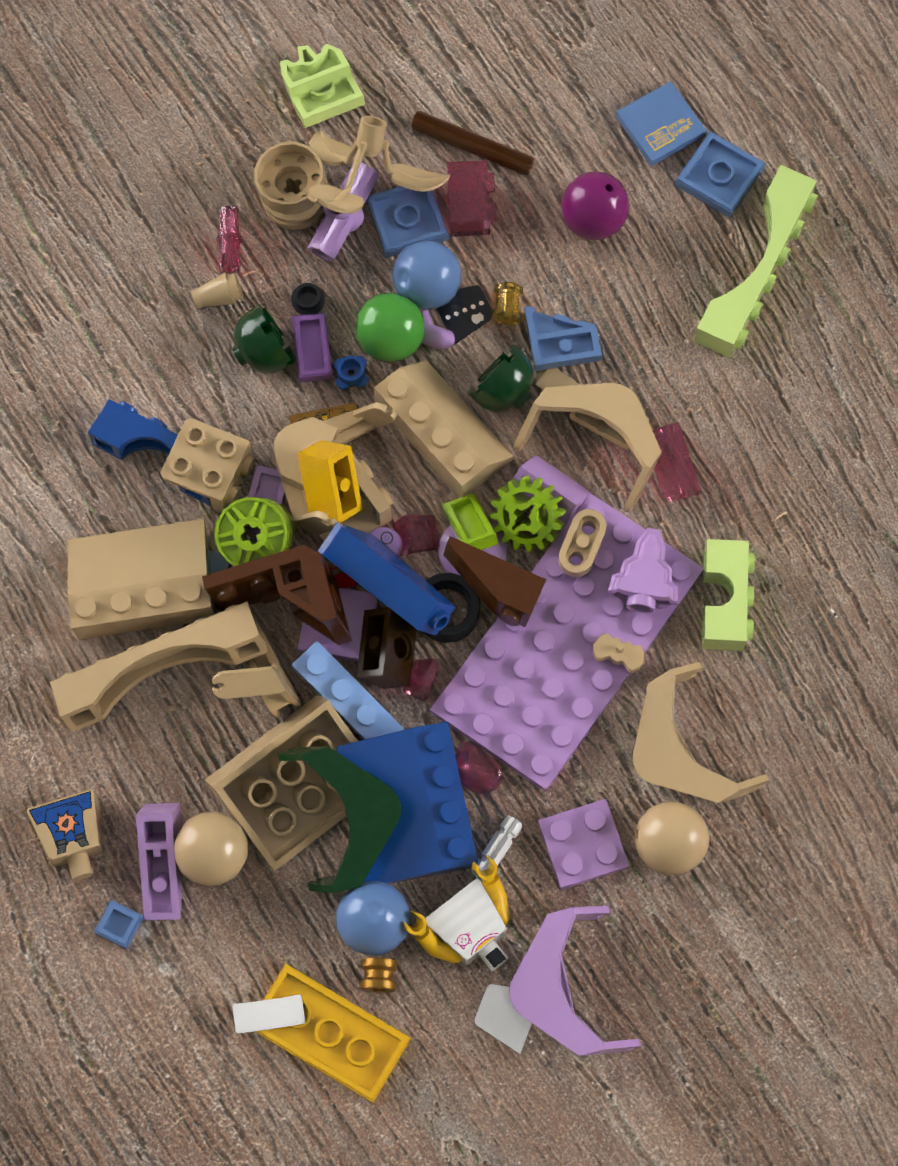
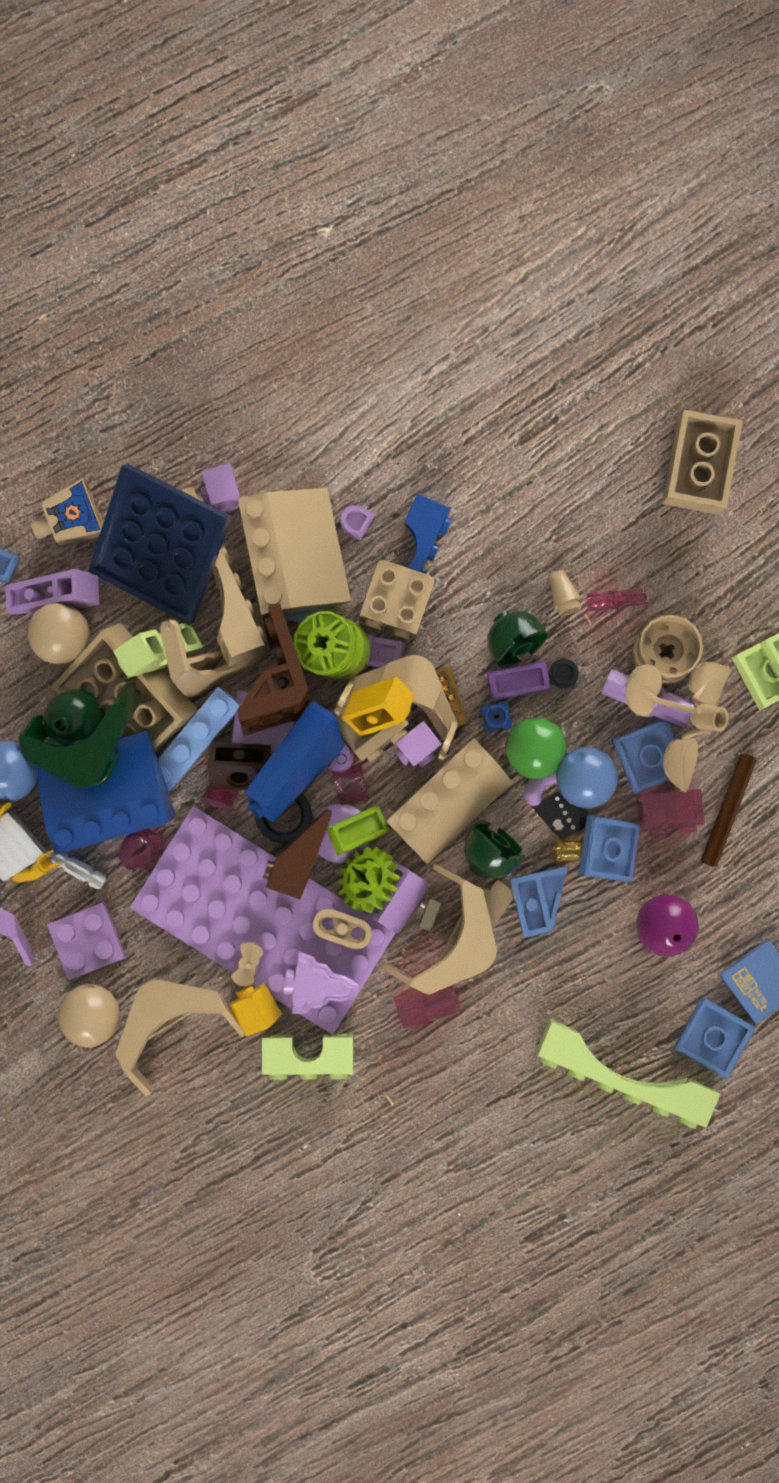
camera: 85 degrees right, 15 degrees up
(55, 654) = (220, 488): none -> lavender brick
(86, 139) = (702, 462): none -> tan brick
(111, 510) = (356, 521): none -> lavender tile
(115, 718) = (159, 543): none -> dark blue plate
(243, 727) = (147, 653): none -> yellowish green arch
(300, 836) = (72, 717): none -> dark green cylinder
(379, 453) = (417, 746): none -> lavender brick
(507, 260) = (609, 849): none -> medium blue tile
(570, 454) = (427, 913): none -> dark tan plate
(671, 647) = (255, 1009): none -> yellow brick

